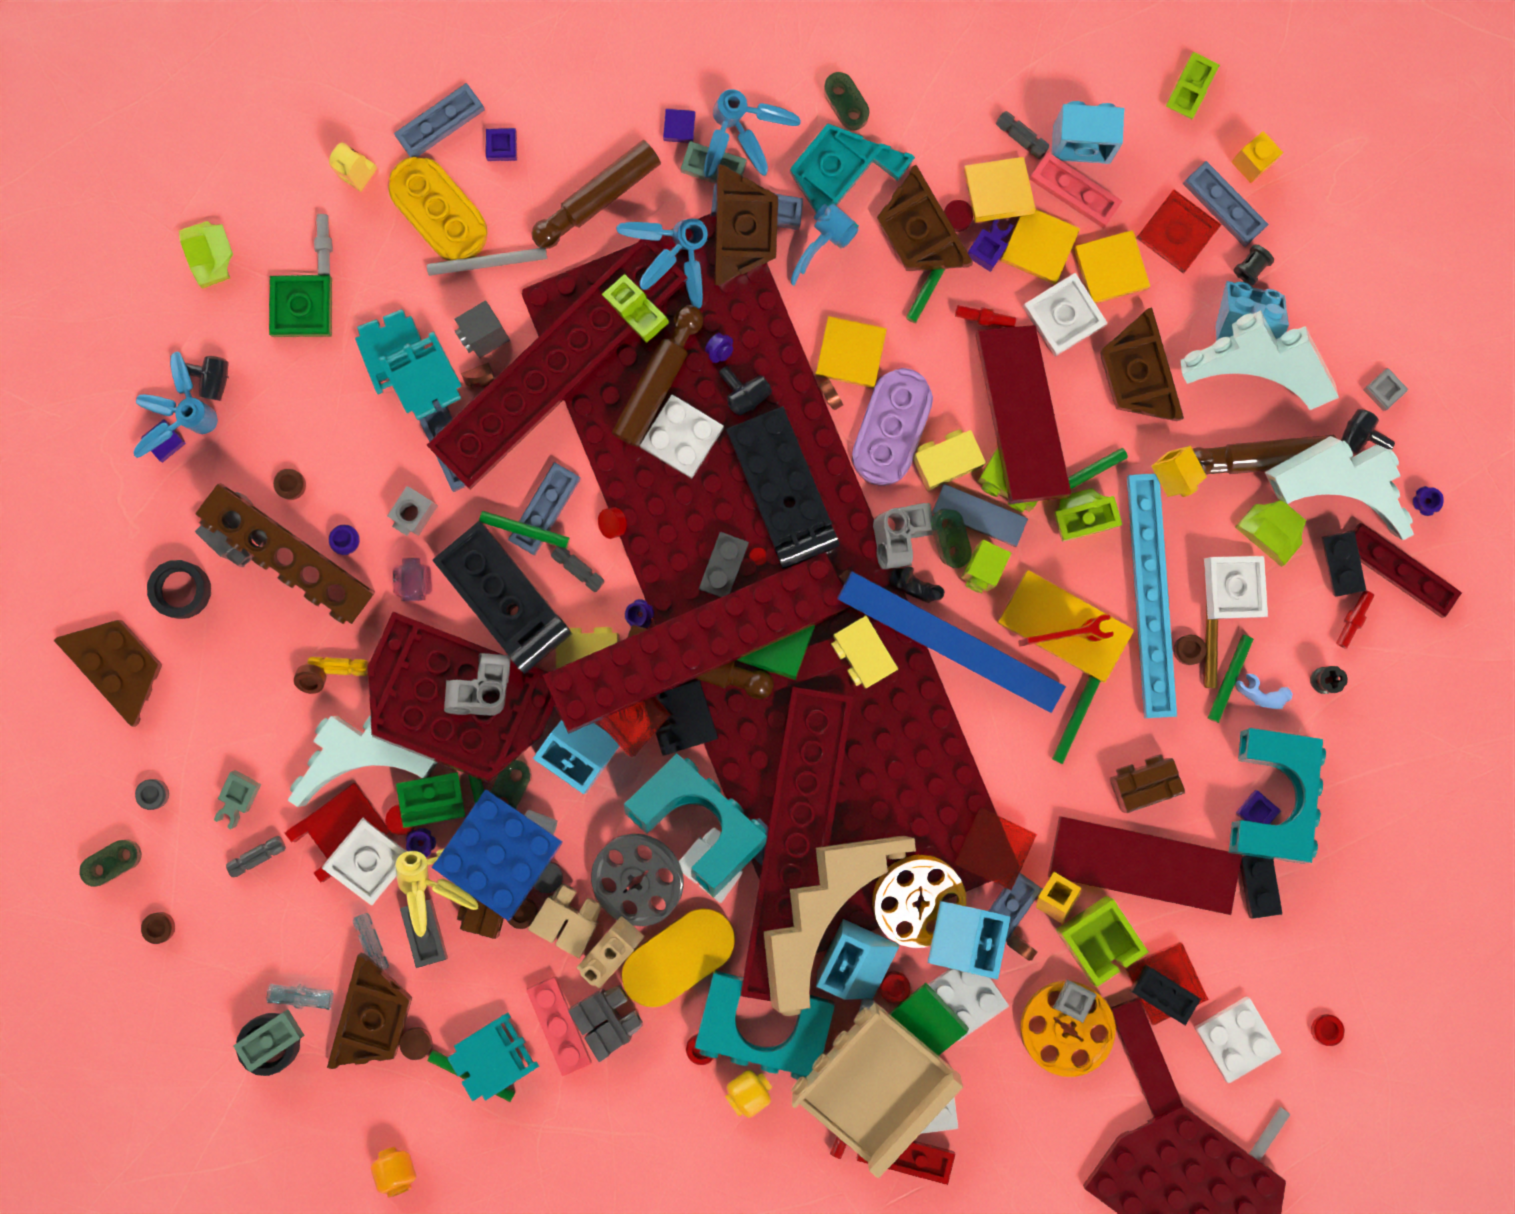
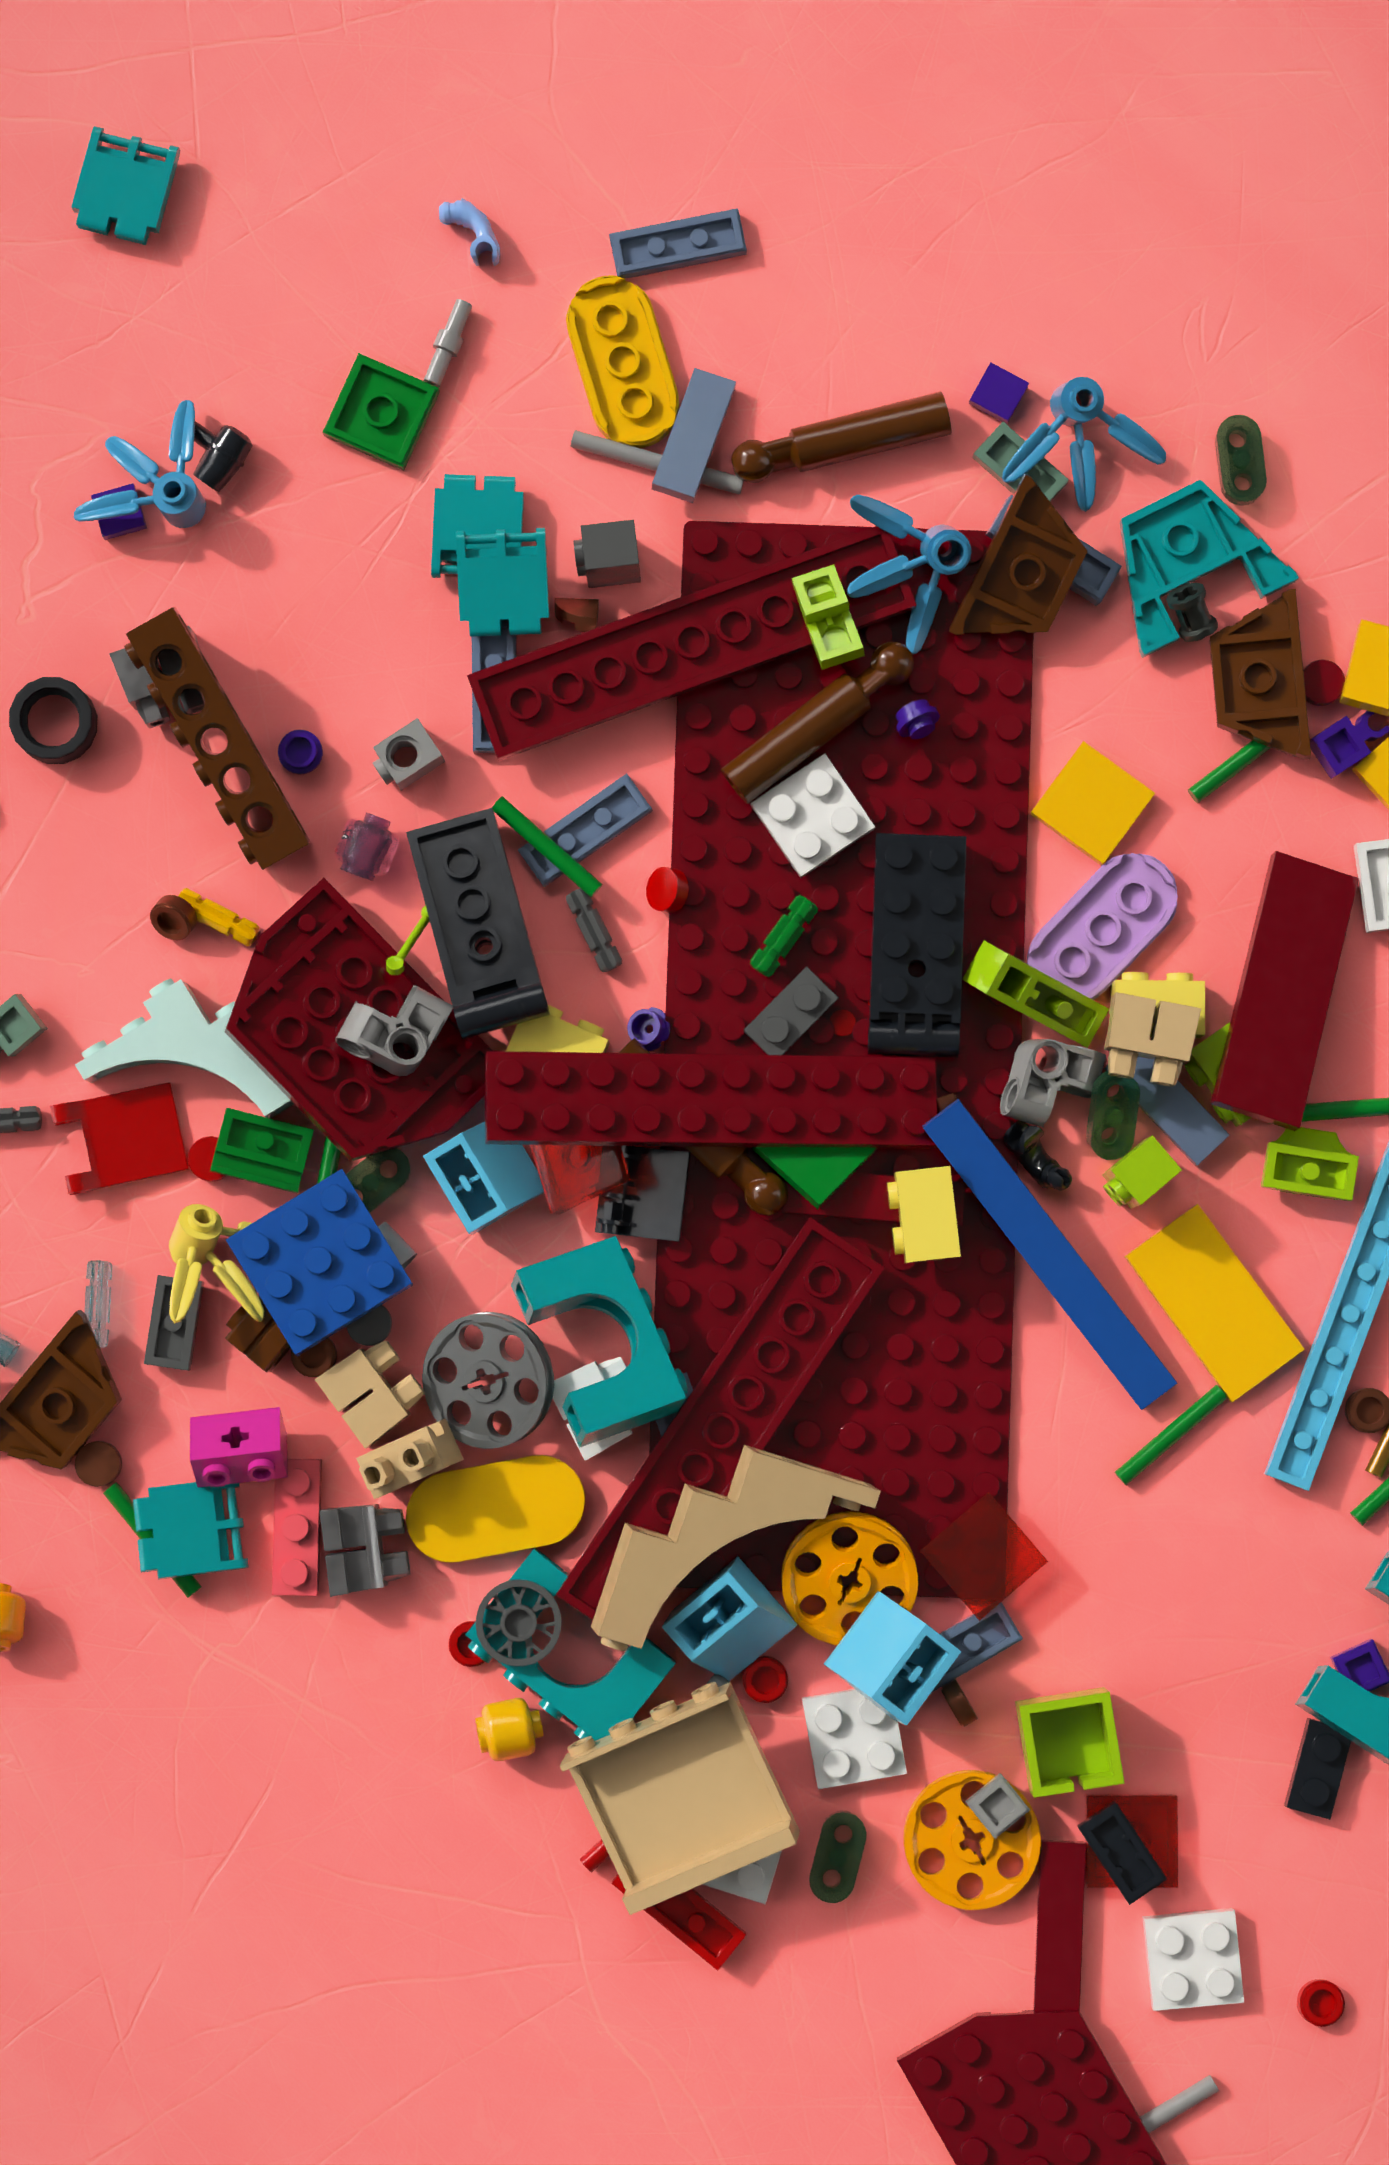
camera: 30 degrees right, 0 degrees up
(75, 237) = (123, 187): none -> teal plate
(206, 252) = (289, 284): lime slope -> none
(289, 484) = (260, 645): copper tile -> none
(299, 160) = (466, 214): none -> light blue piece
(351, 166) = (534, 256): light yellow leg -> none
(365, 861) = (140, 1192): white plate -> none
(424, 835) = (228, 1190): dark purple plate -> none
(462, 645) = (395, 964): none -> lime hinge
(499, 994) = (238, 1447): none -> dark pink brick
(501, 144) = (747, 312): dark purple tile -> none
(502, 234) = (693, 435): none -> sand blue tile
(697, 518) = (783, 935): none -> green axle
(725, 1025) = (518, 1622): none -> dark grey wheel
(746, 395) = (924, 800): black piece -> none
(831, 395) = (1039, 849): copper tile -> none
(833, 226) = (1143, 623): dark azure plant -> none
(859, 206) = (1192, 612): none -> pearl dark grey bush
(869, 484) = (1035, 994): none -> lime slope
(930, 1019) = (793, 1742): green tile -> none
(953, 475) = (1130, 1036): none -> tan hips
(985, 316) = (1296, 836): red bar -> none
(988, 1077) = (838, 1856): none -> clear green plate
(1058, 897) = (1037, 1658): yellow brick -> none
(1089, 631) = (1239, 1321): red flag -> none
(1145, 865) = (1175, 1670): dark red tile -> none
(1146, 784) = (1226, 1563): reddish brown brick -> none

